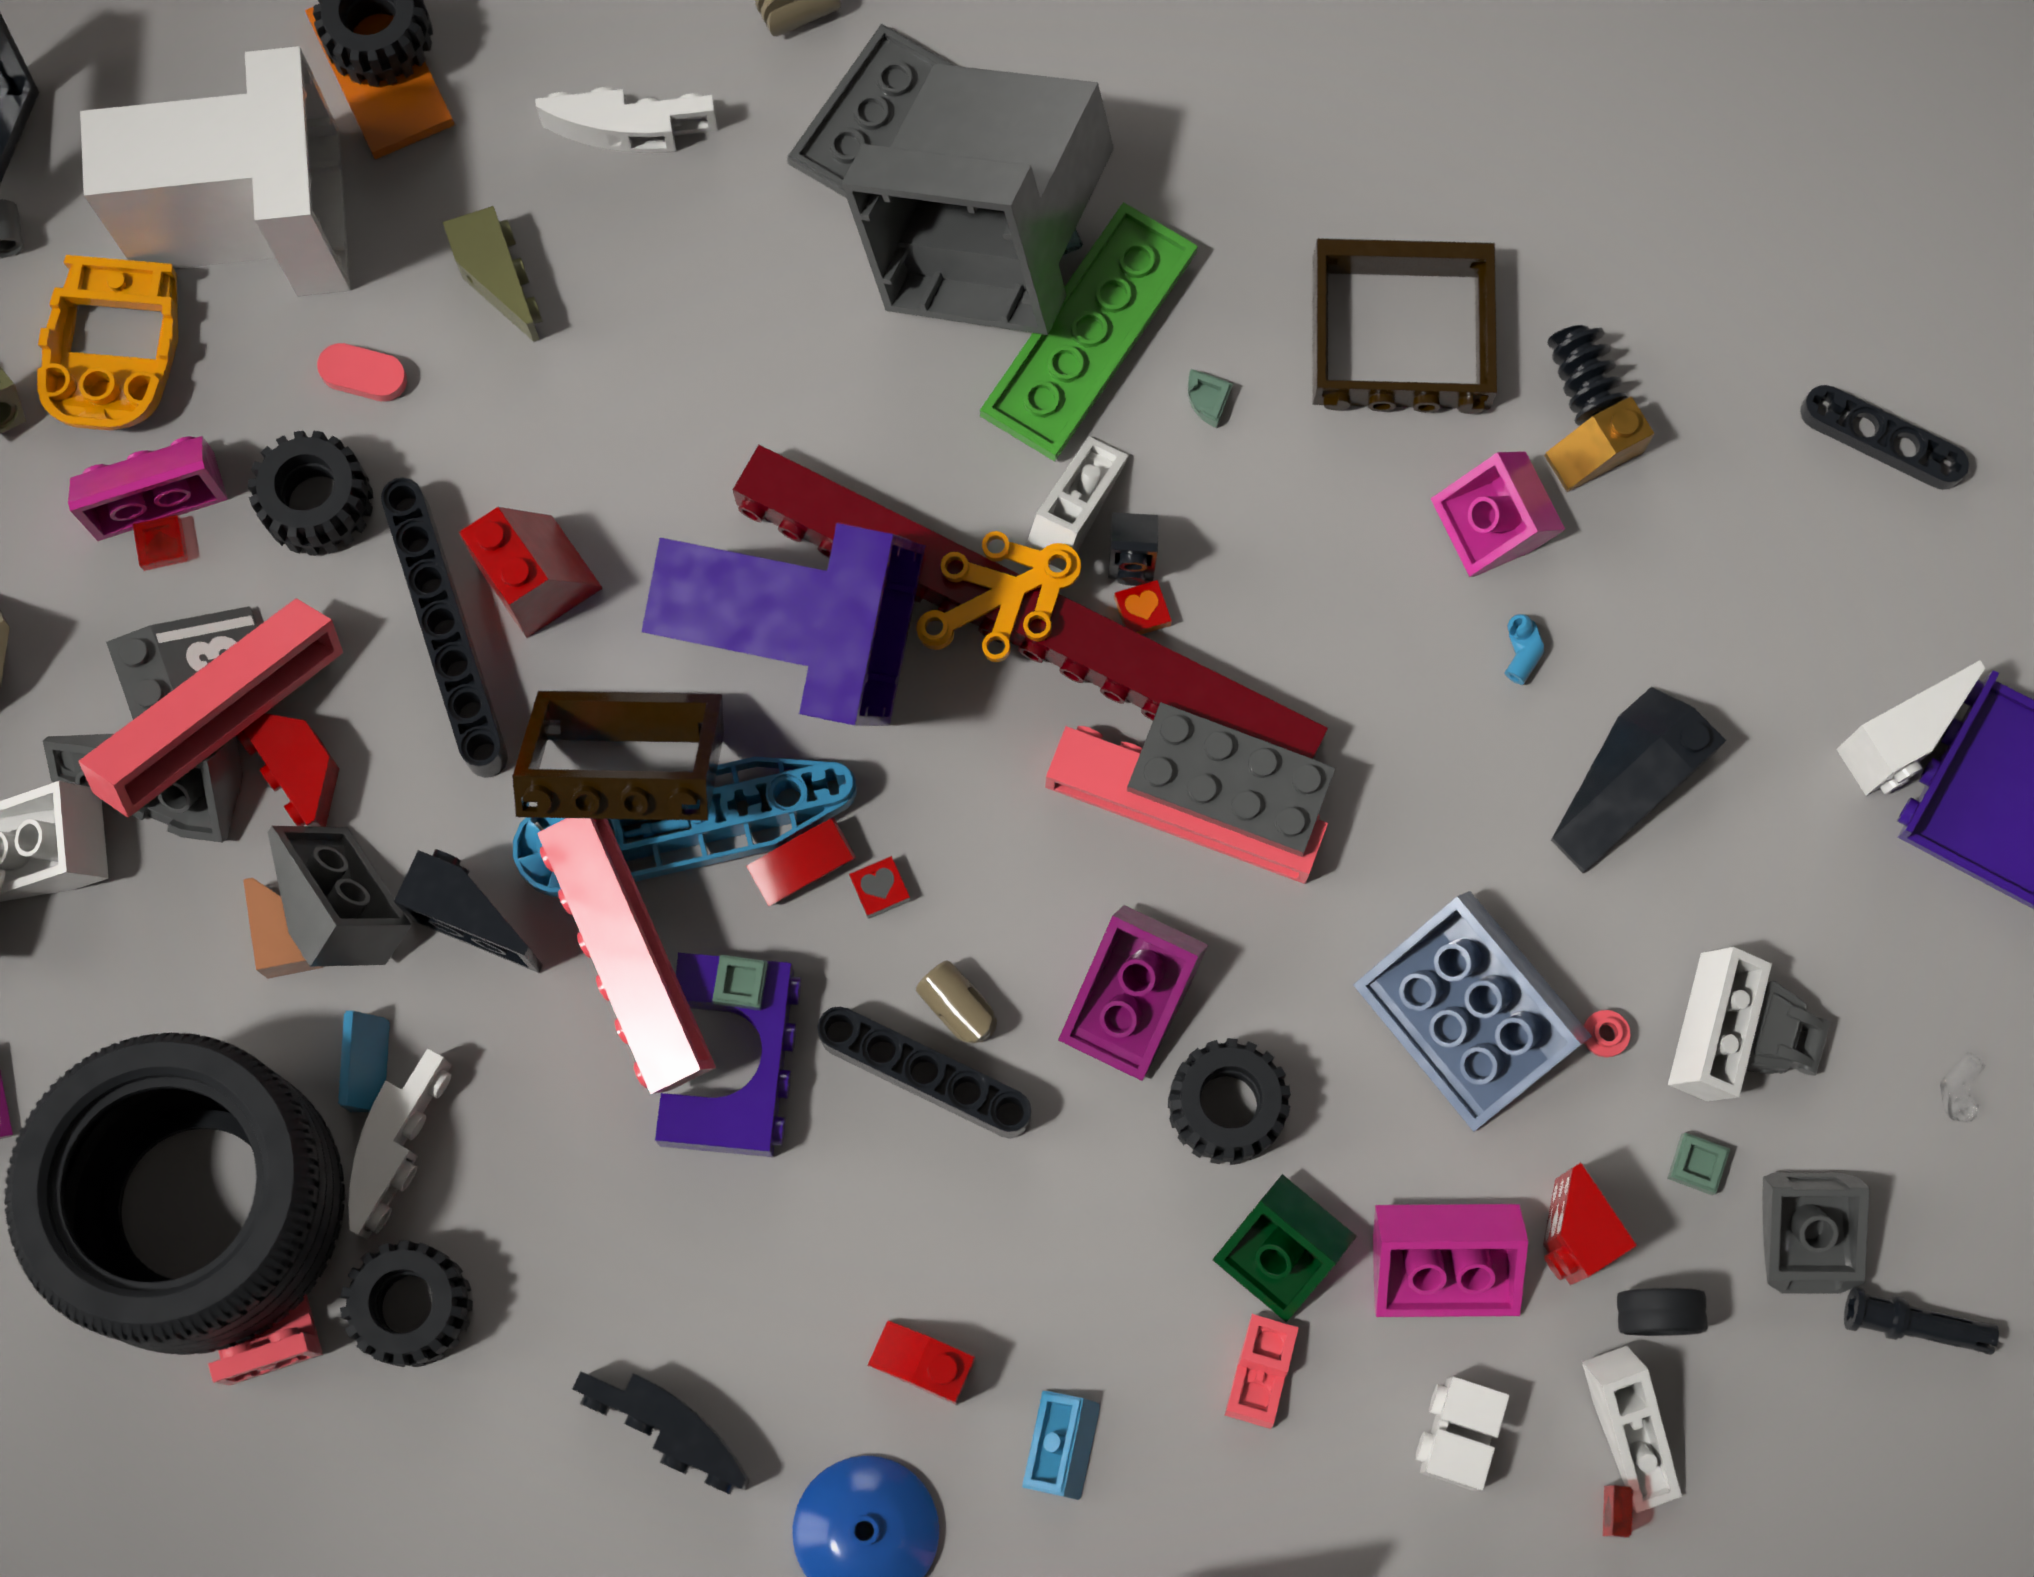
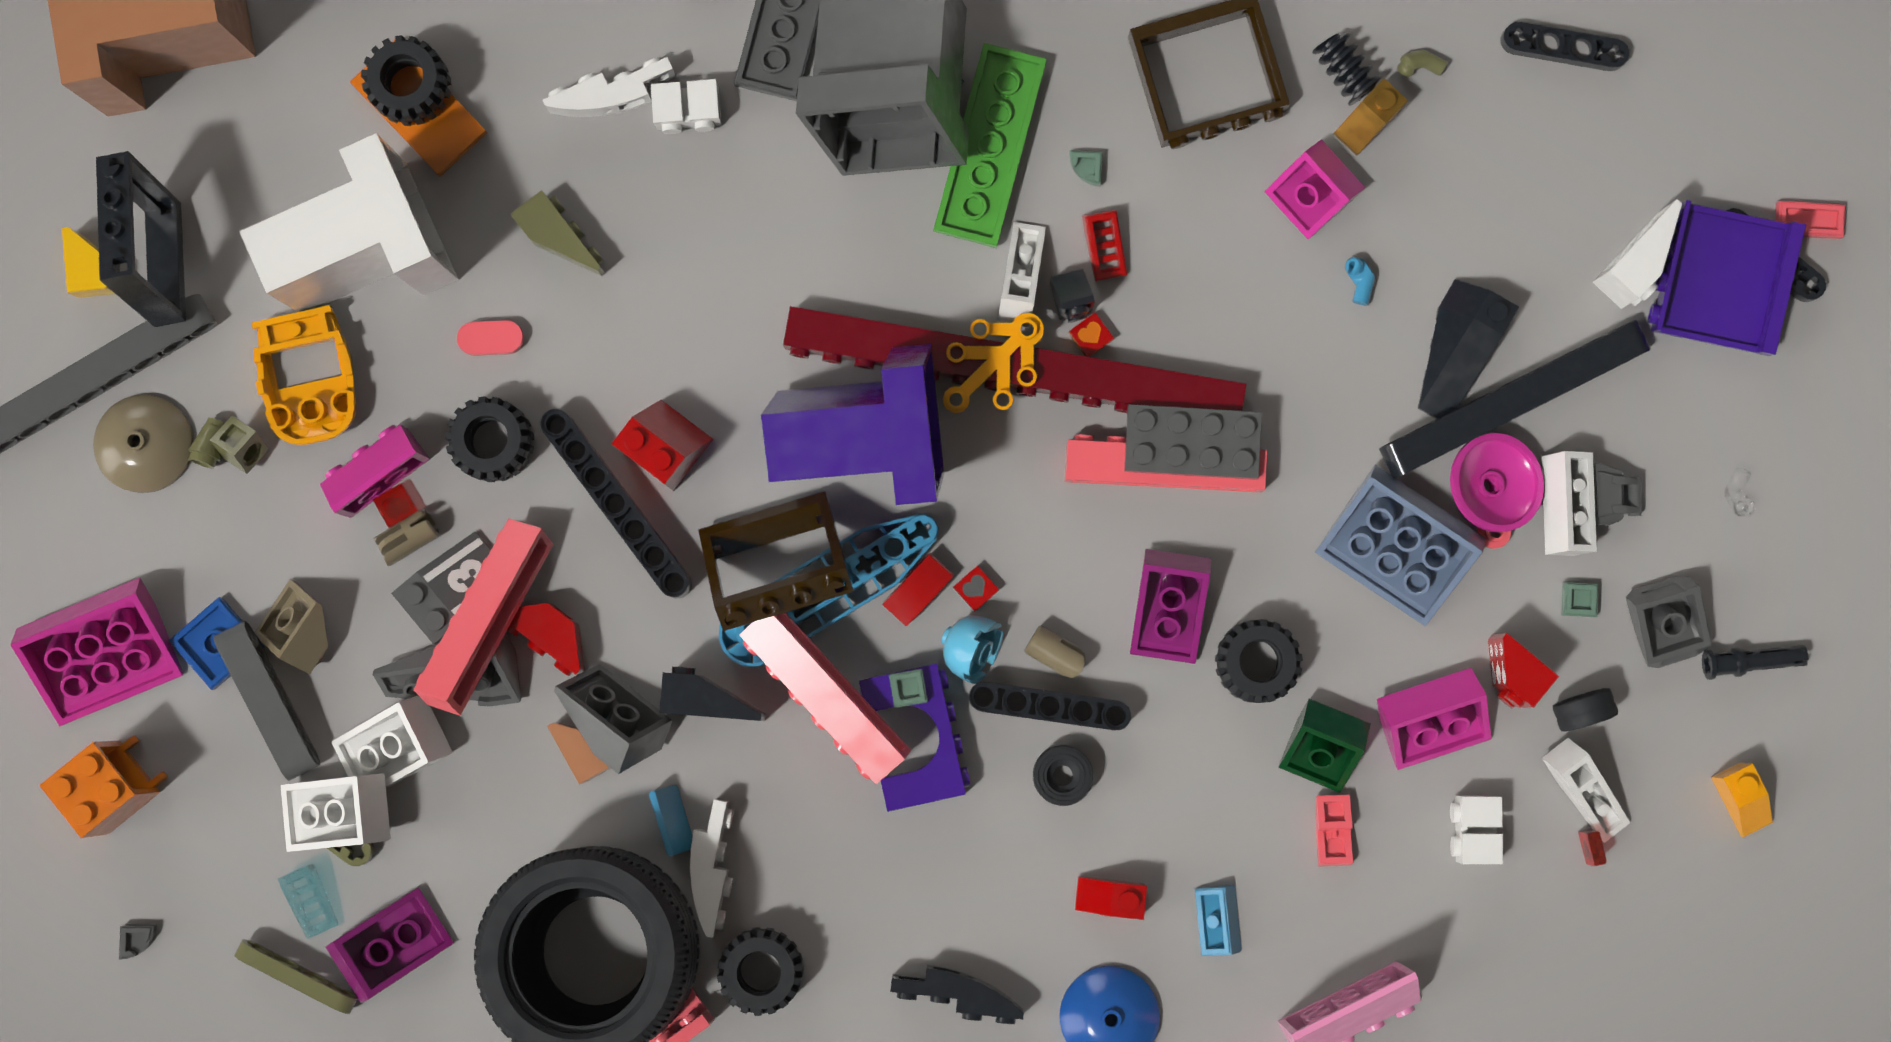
camera: 15 degrees left, 10 degrees up
(157, 583) = (406, 536): none -> dark tan arm
(722, 171) = (686, 107): none -> white piece
(846, 958) = (970, 646): none -> medium azure cylinder
(911, 1145) = (1062, 794): none -> black tyre
(1204, 464) = (1116, 242): none -> red slope
(1650, 957) = (1512, 477): none -> dark pink dish
(1685, 862) = (1514, 399): none -> black beam
(1687, 395) = (1420, 59): none -> olive arm
(1854, 1513) = (1744, 797): none -> light orange slope

